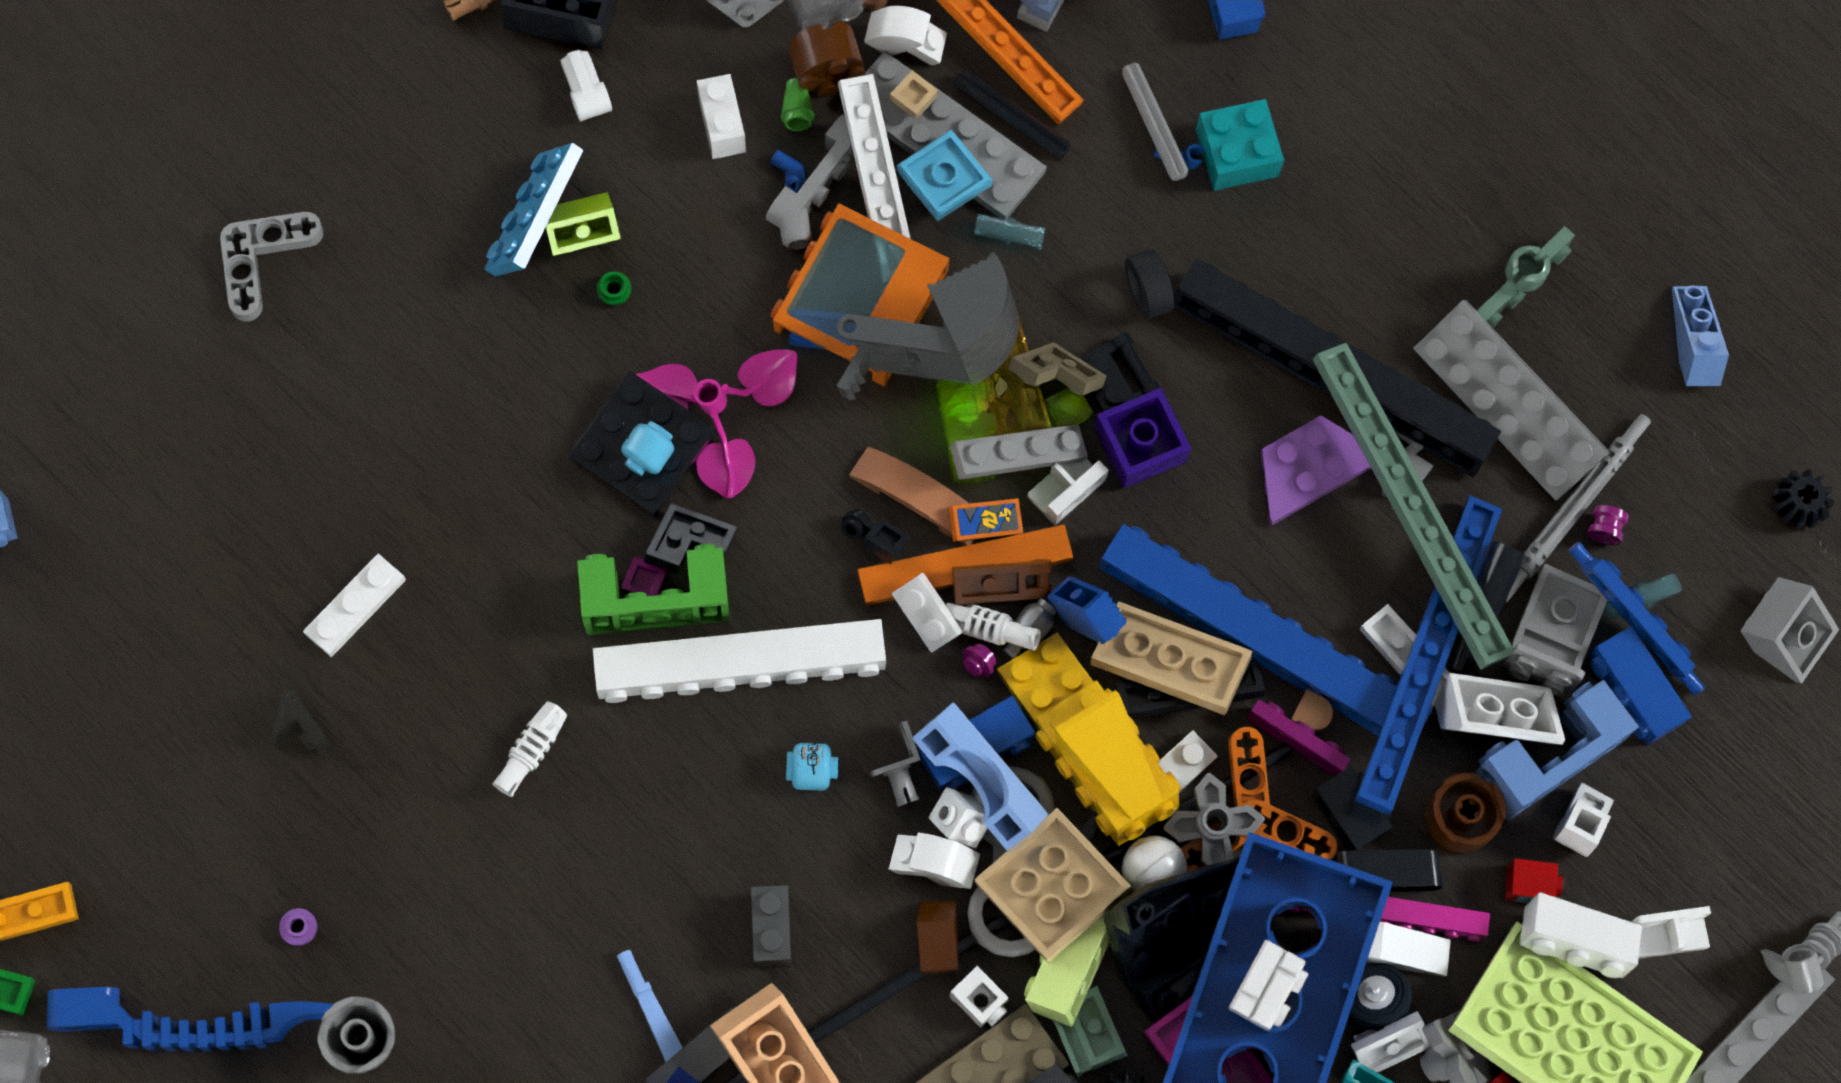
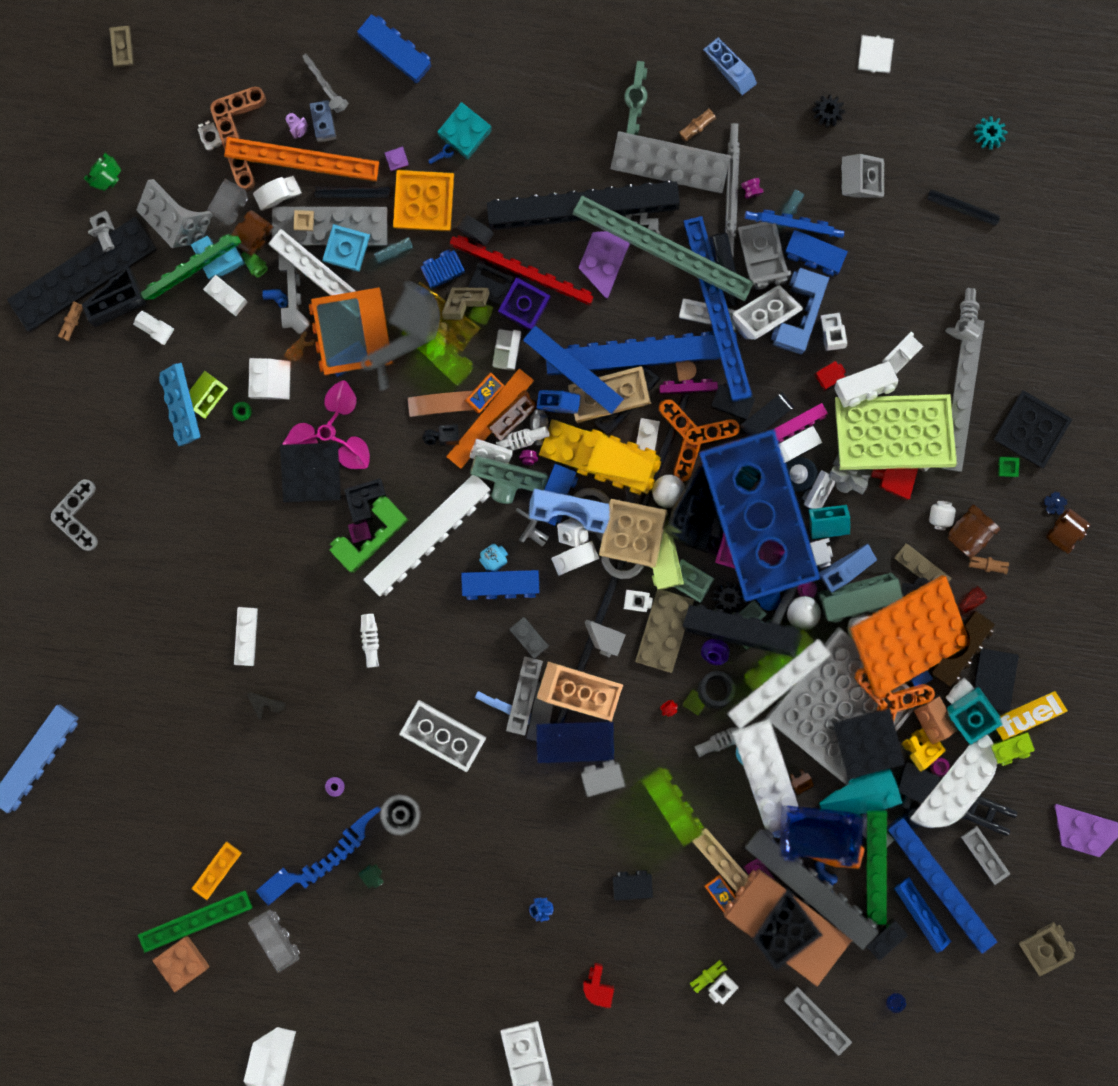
camera: 30 degrees left, 15 degrees up
(521, 974) = (442, 735): none -> white brick
(647, 448) = (317, 475): medium azure head -> none
(688, 271) = (269, 379): none -> white slope
(694, 1010) = (524, 696): none -> light grey slope
(704, 36) = (187, 269): none -> green plate
(752, 67) = (223, 264): none -> medium azure brick
(761, 260) = (295, 350): none -> clear orange plate
(792, 813) = (500, 583): none -> blue brick
(886, 1016) = (604, 638): none -> light grey slope
(923, 662) = (507, 478): none -> sand green plate
(938, 936) = (600, 588): reddish brown slope -> none
(1018, 451) = (476, 353): light grey plate -> none
(1060, 305) = (442, 269): none -> blue brick
(1106, 196) = (423, 200): none -> light orange plate
(1111, 116) = (396, 159): none -> medium lavender plate
(1145, 580) = (573, 369): none -> blue tile
(1155, 121) = (418, 147): light grey axle -> none
(1183, 403) = (529, 273): none -> red plate
(1211, 803) = (687, 462): light grey plant -> none
(1268, 986) = (754, 513): white brick -> none
(1296, 932) = (747, 477): none -> teal gear
(1473, 795) = (792, 366): reddish brown brick -> none
(1587, 380) = (697, 125): none -> medium nougat pin

